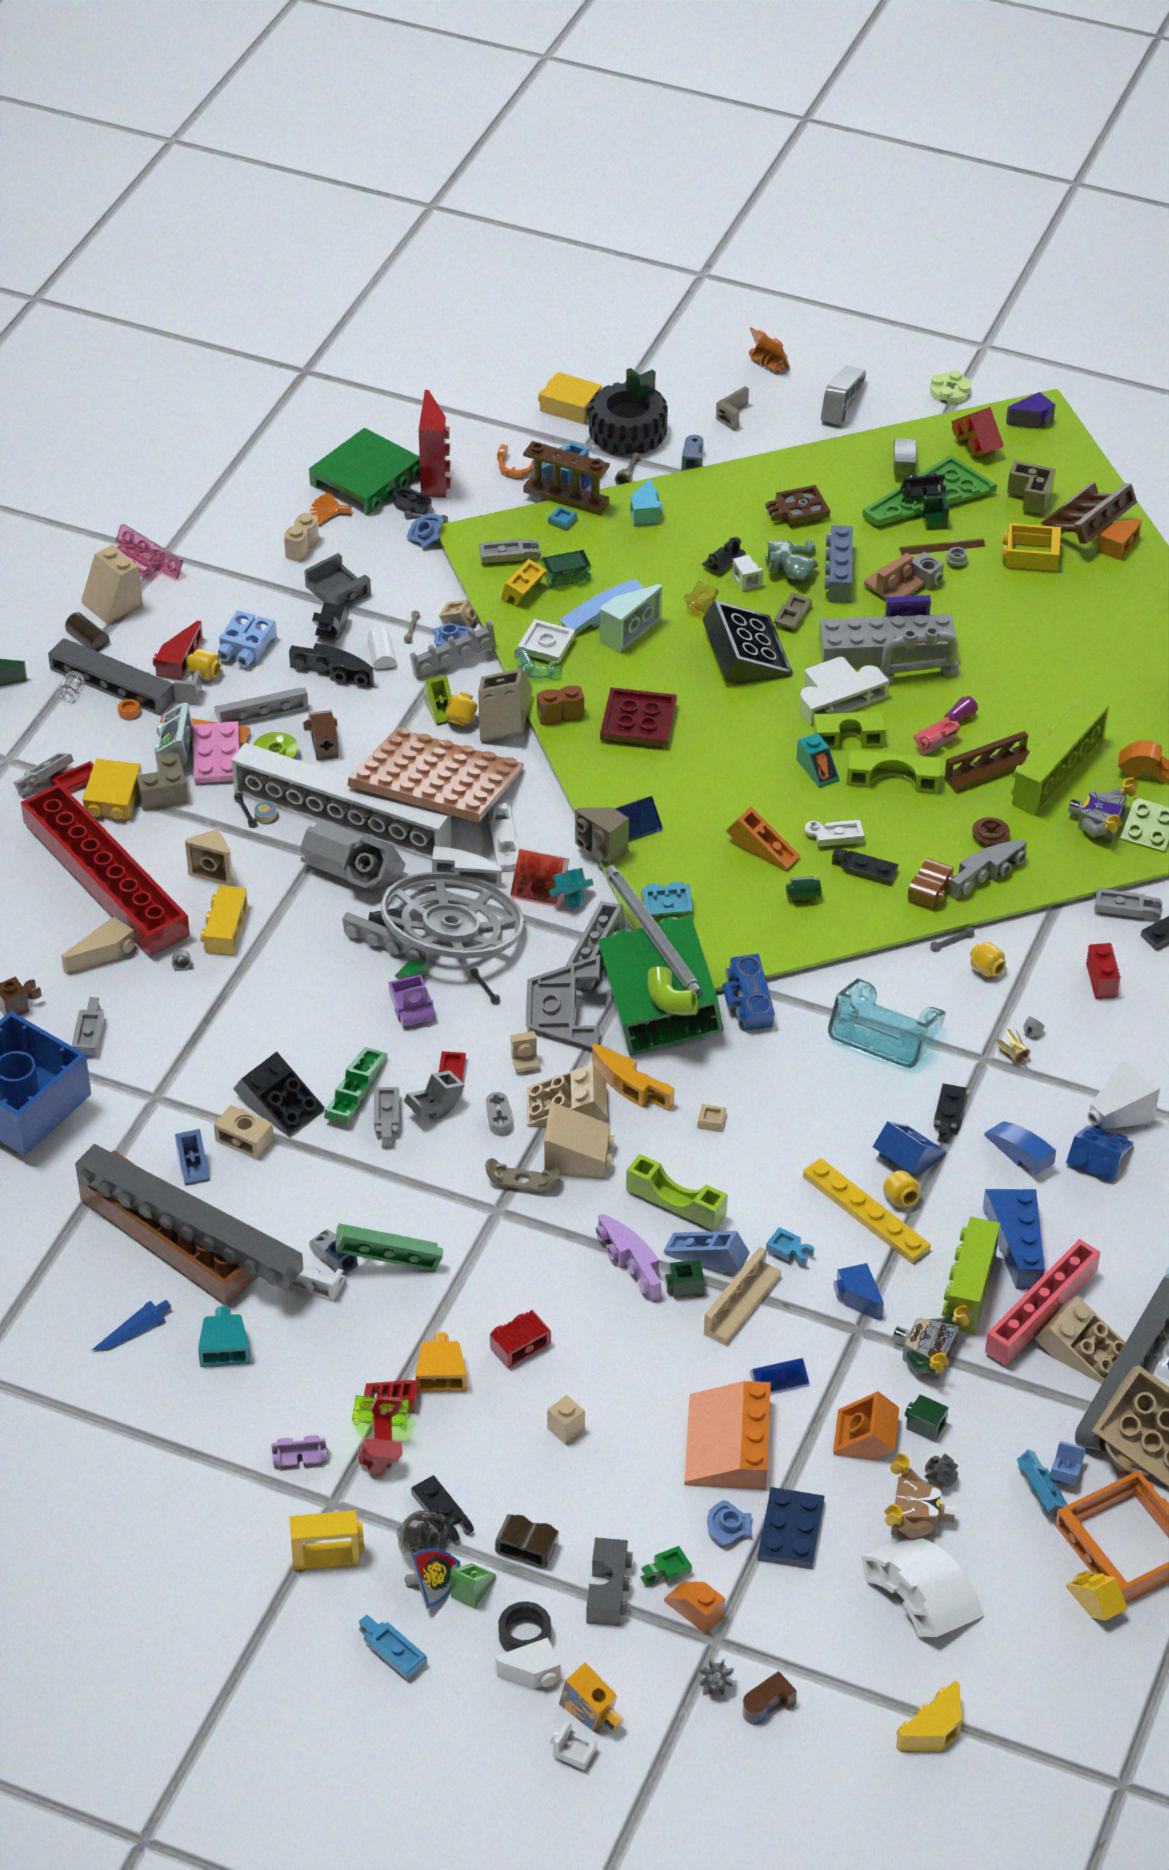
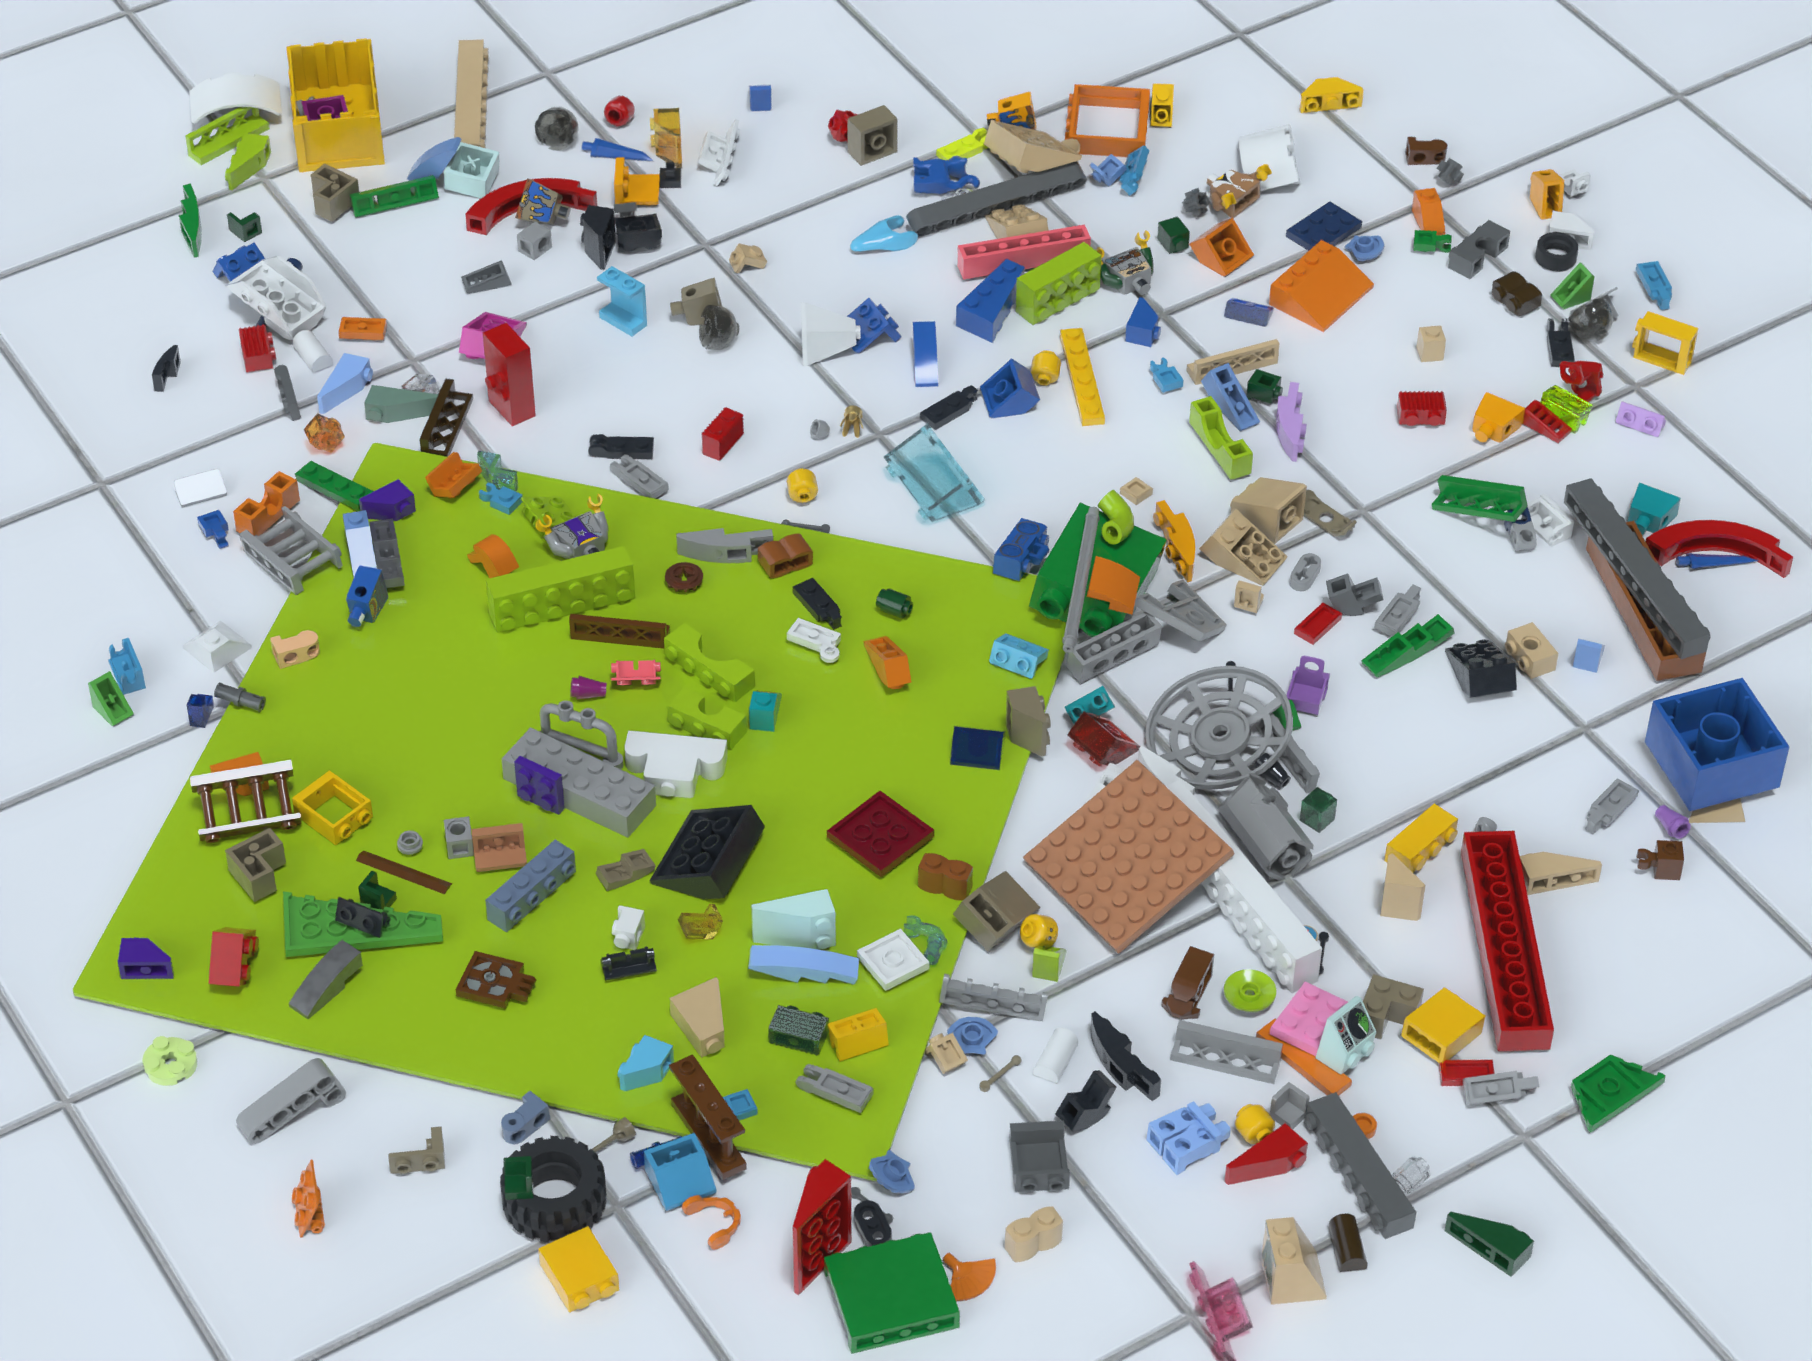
camera: 145 degrees left, 0 degrees up
(139, 1344) = (1719, 536): none -> red arch
(324, 900) = (1318, 809): none -> clear green brick
(622, 940) = (1113, 584): none -> orange slope
(638, 545) = (700, 1016): none -> tan slope
(782, 556) = (579, 913): sand green animal -> none

